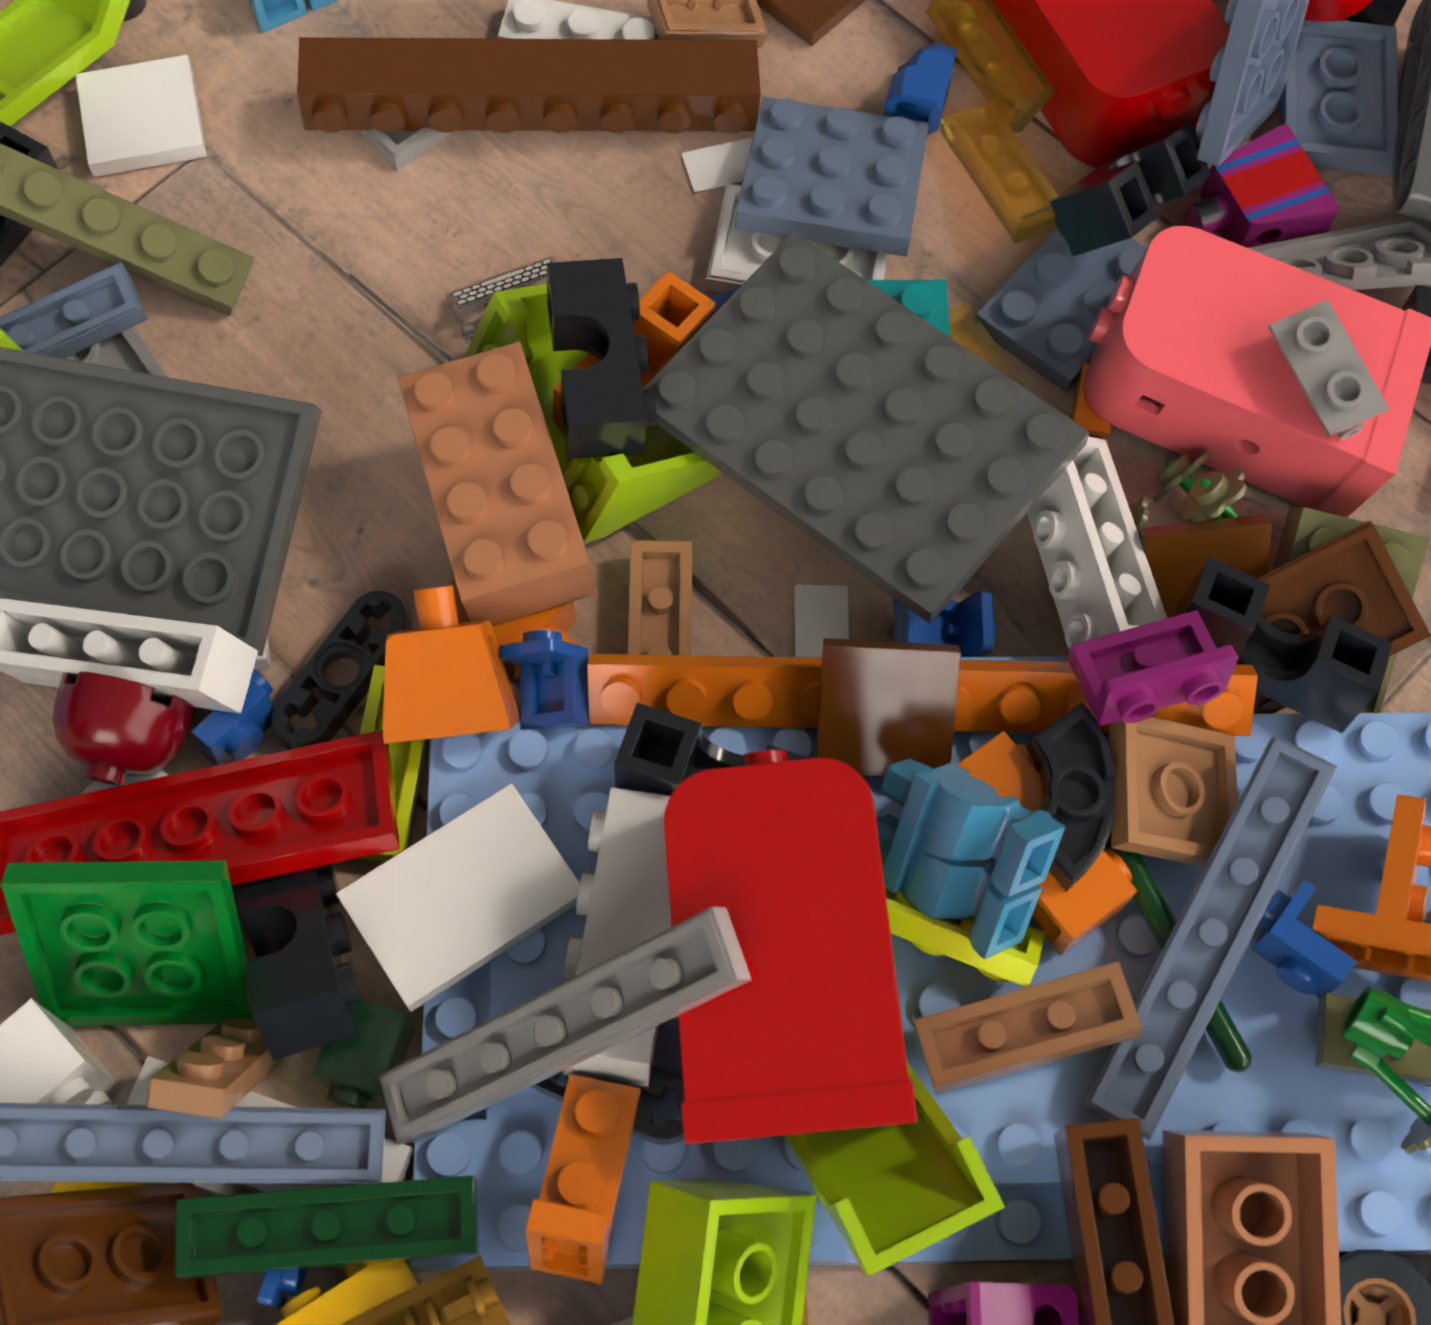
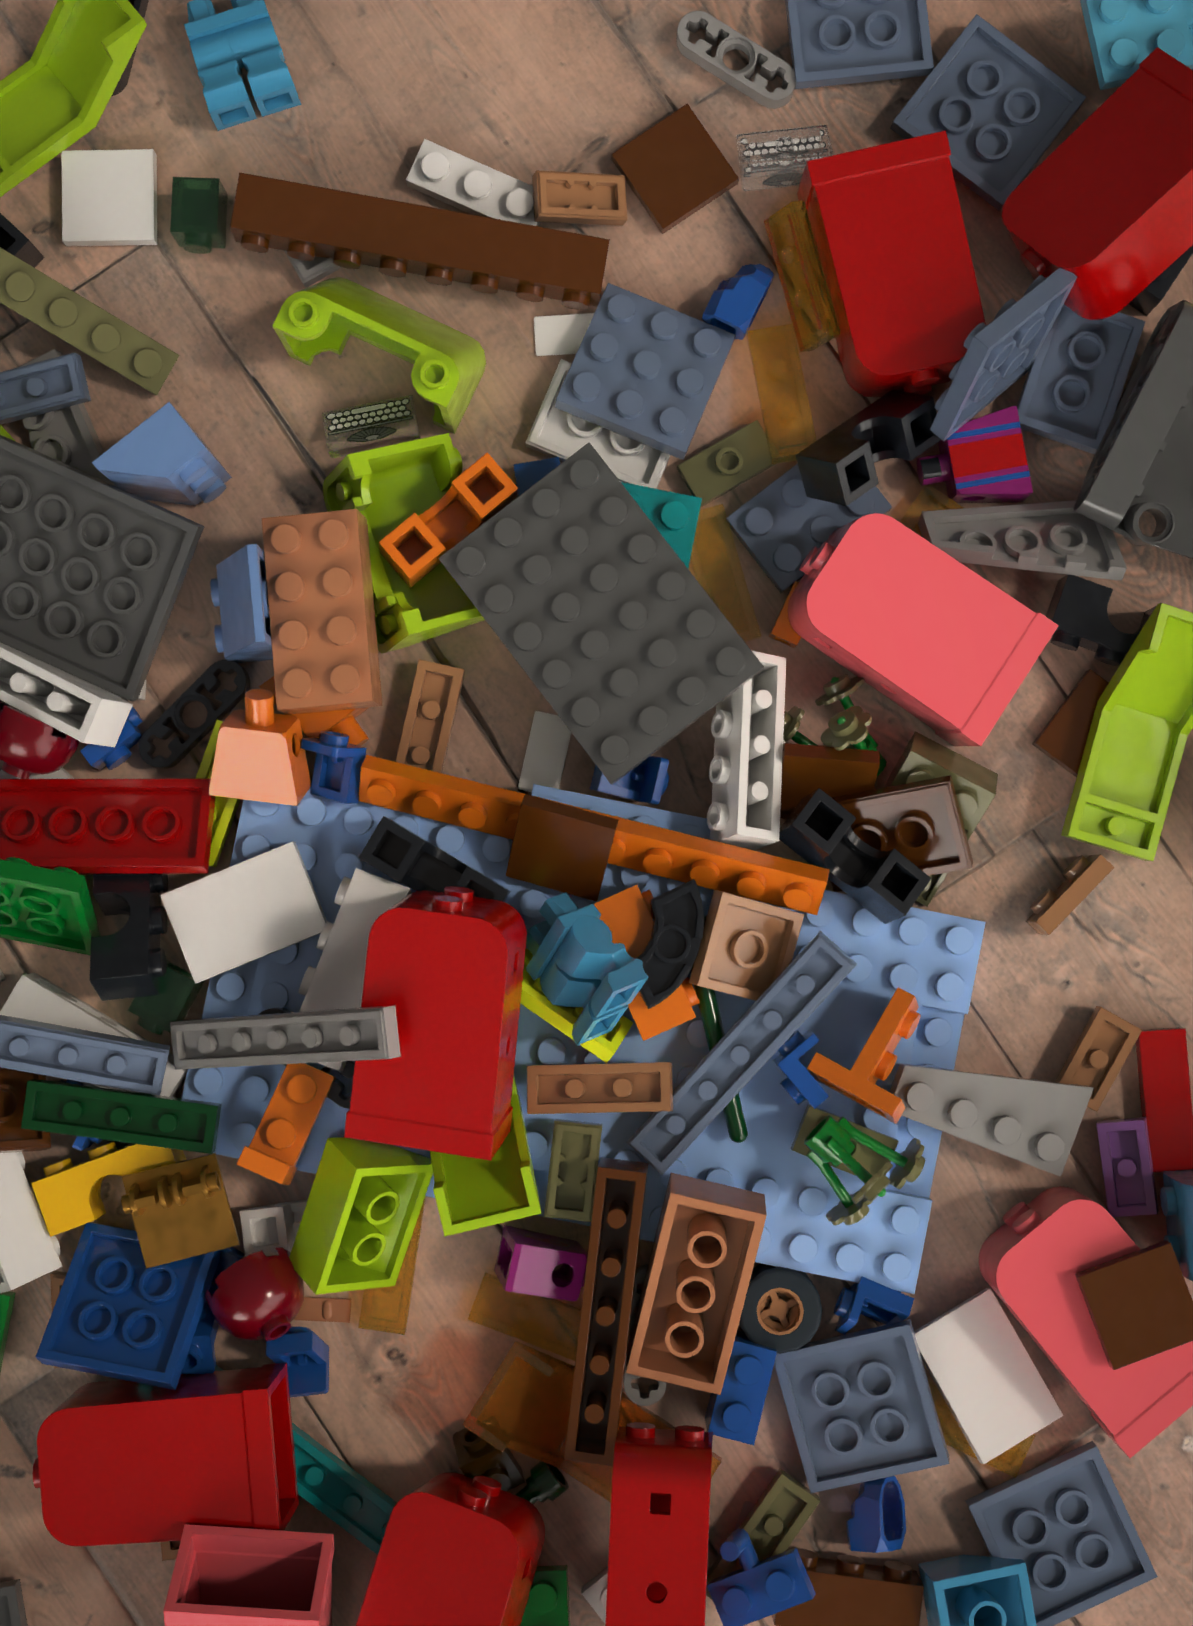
camera: 15 degrees right, 20 degrees up
(213, 1071) = (59, 1004): medium nougat plate -> none
(254, 106) = (198, 214): none -> clear green brick
(258, 336) = (164, 462): none -> medium blue slope
(393, 506) = (243, 606): none -> medium blue slope
(439, 169) = (444, 359): none -> lime windscreen
(593, 313) = (417, 487): black arch -> none
(964, 254) = (727, 463): none -> olive plate
(1021, 1160) = (573, 1170): none -> olive plate
(1151, 668) = (747, 867): magenta bracket -> none
(1329, 369) = (947, 665): light grey hinge -> none

